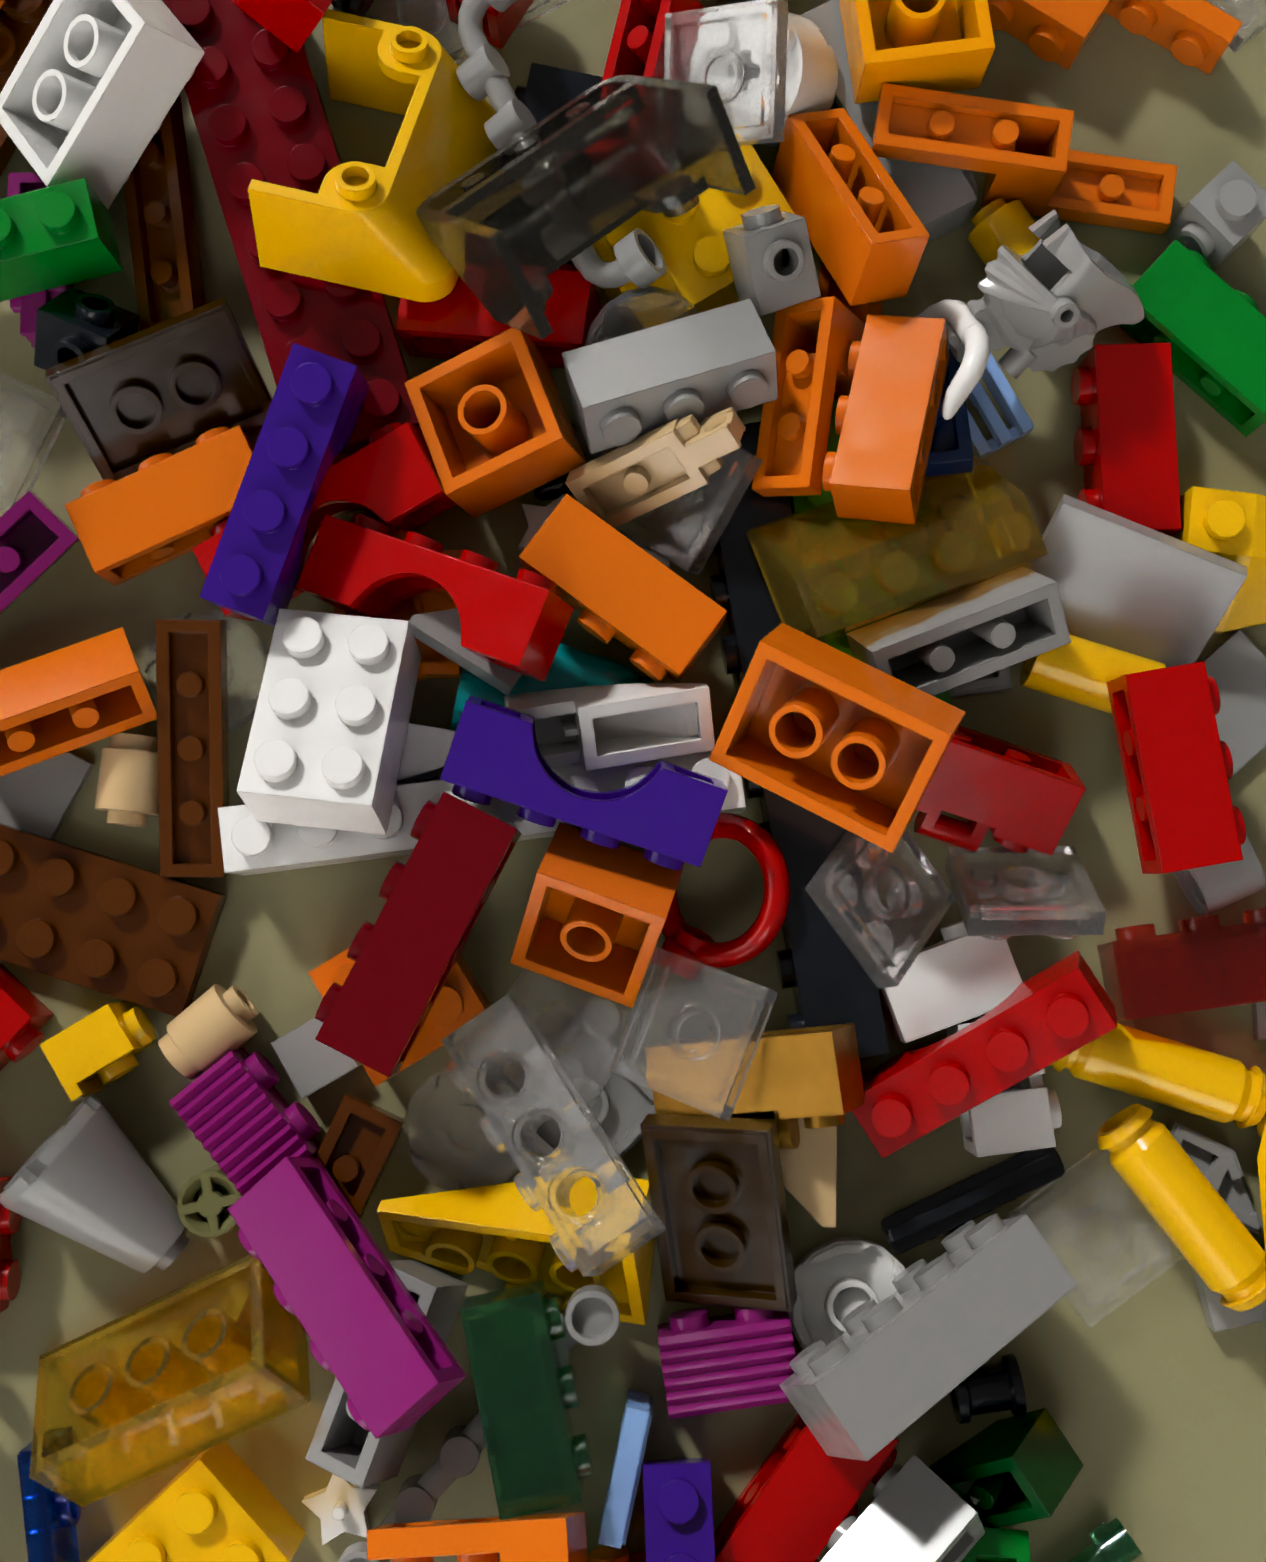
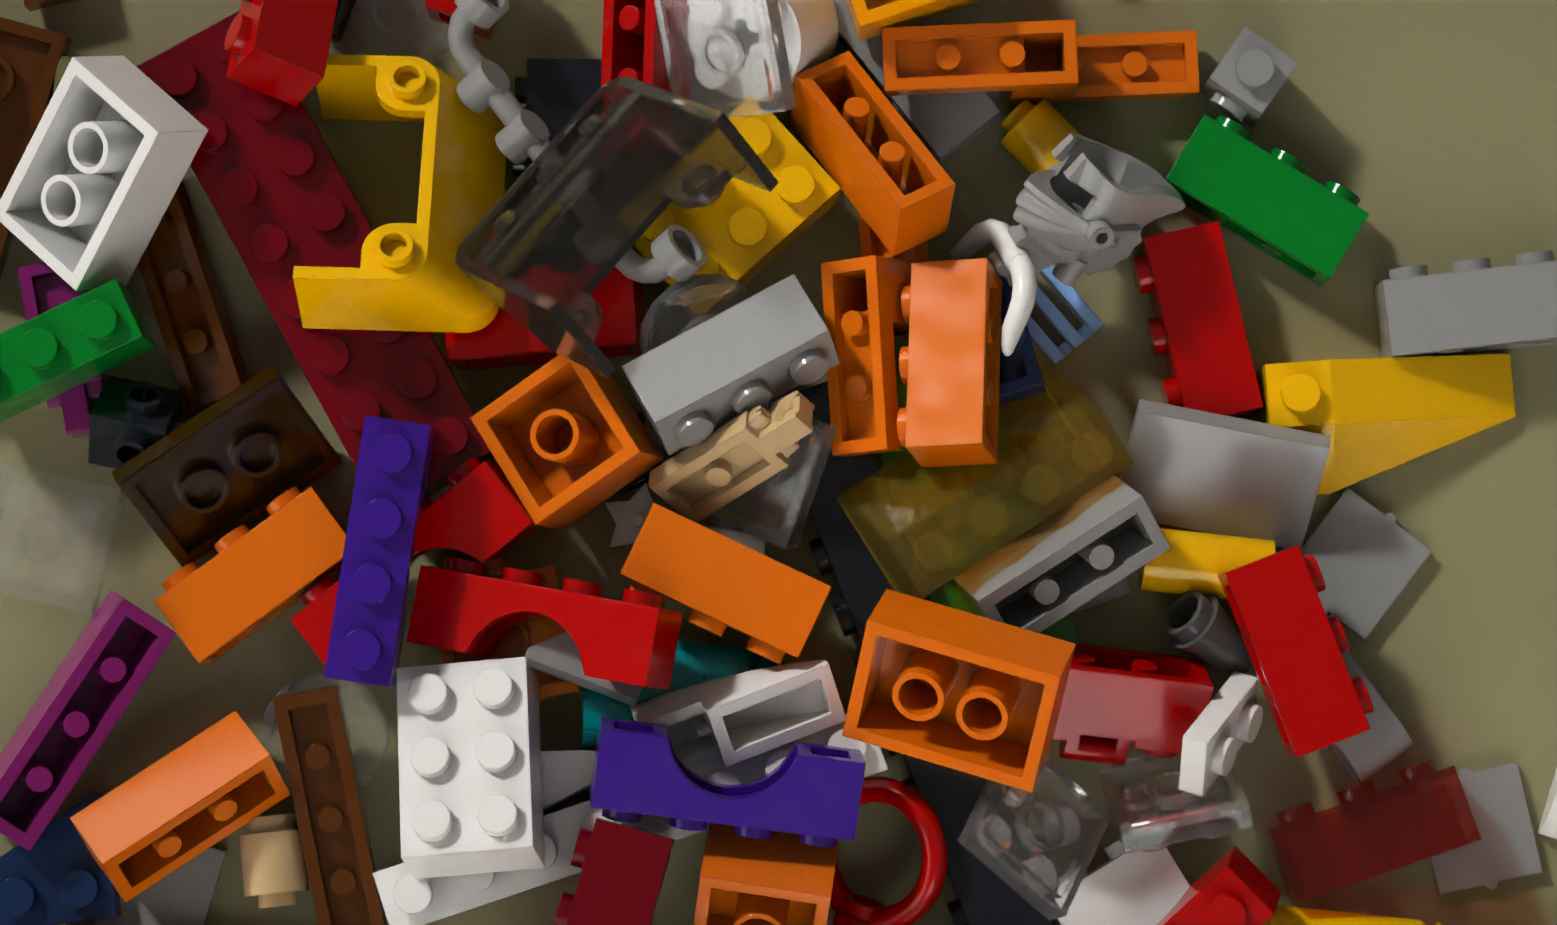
camera: 10 degrees left, 0 degrees up
(772, 259) = (807, 228): light grey brick -> none
(1080, 837) = (1219, 733): none -> white plate
(1083, 739) = (1206, 631): none -> dark grey cone

